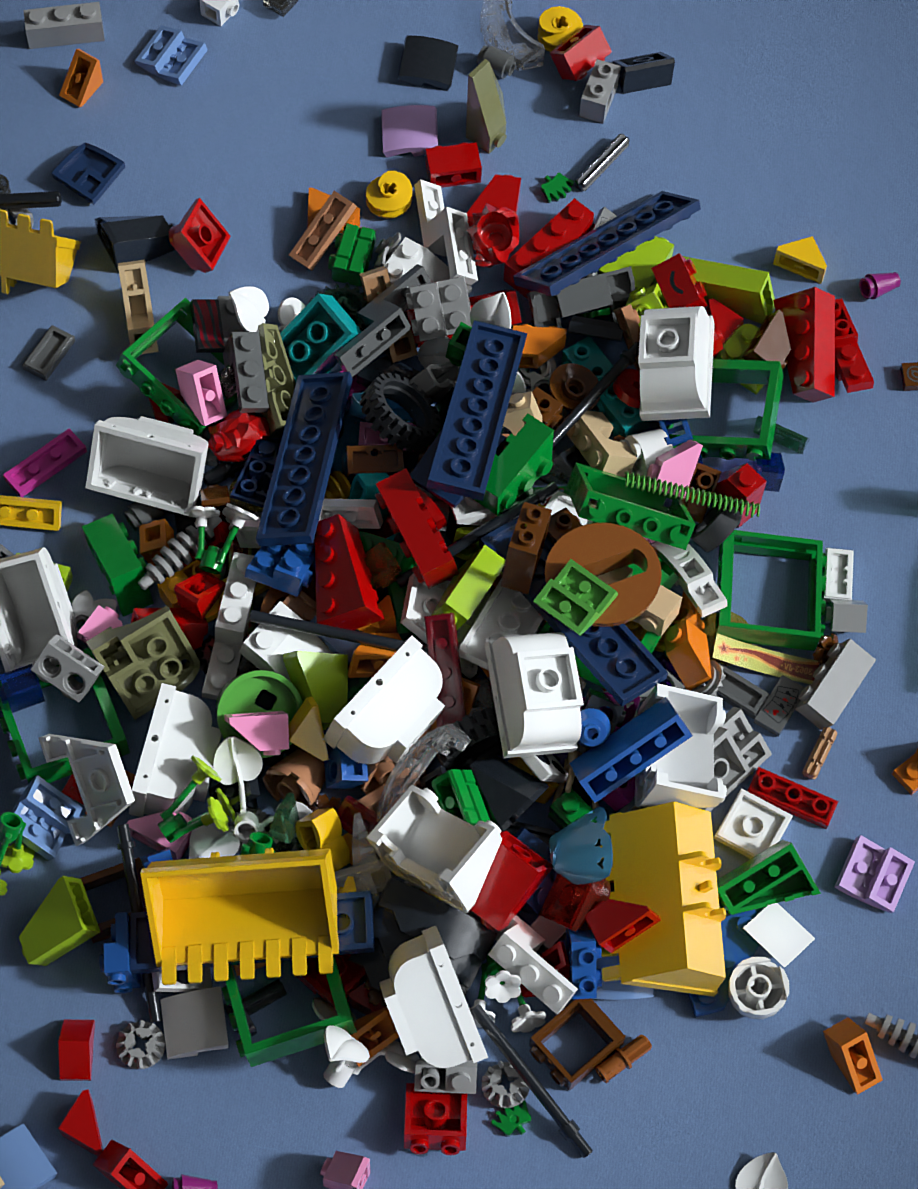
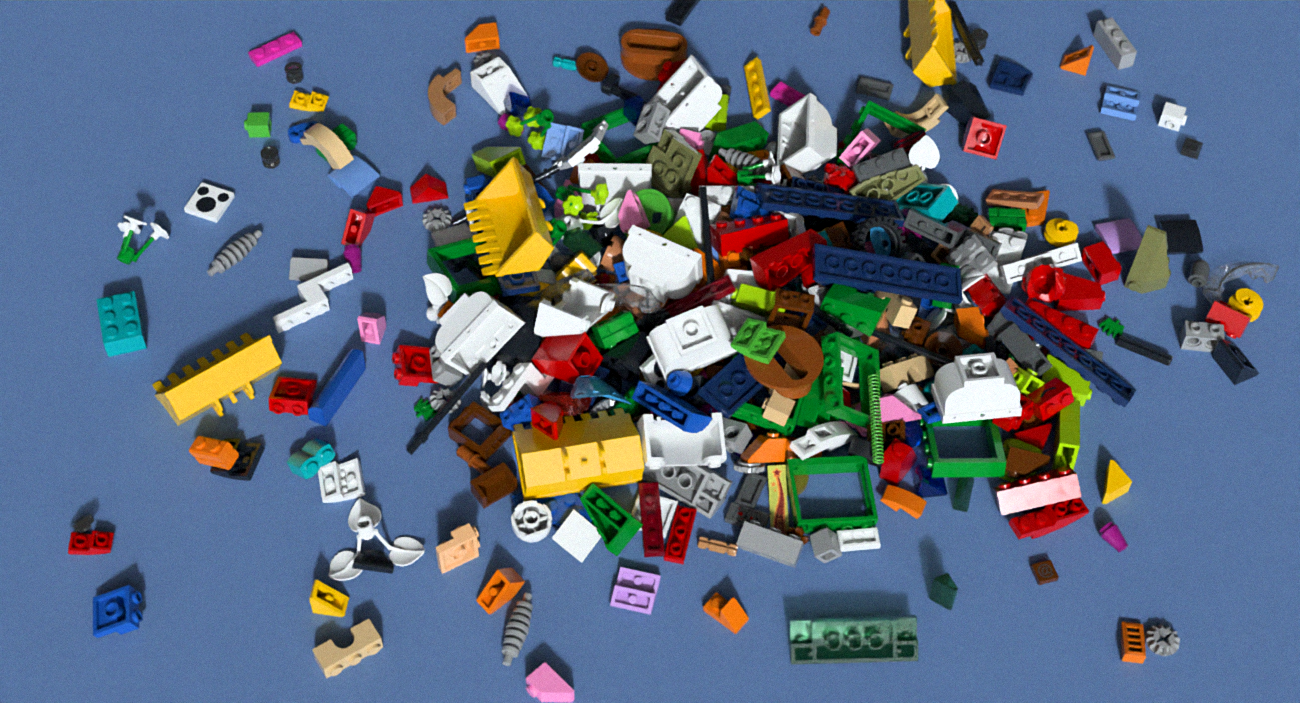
camera: 80 degrees right, 10 degrees down
(243, 102) = (1101, 146): none -> dark grey tile
(673, 1036) = (493, 485): none -> reddish brown panel
(770, 828) = (651, 519): none -> dark red tile
(782, 1094) = (458, 550): none -> light nougat plate
(788, 506) = (900, 498): none -> orange slope

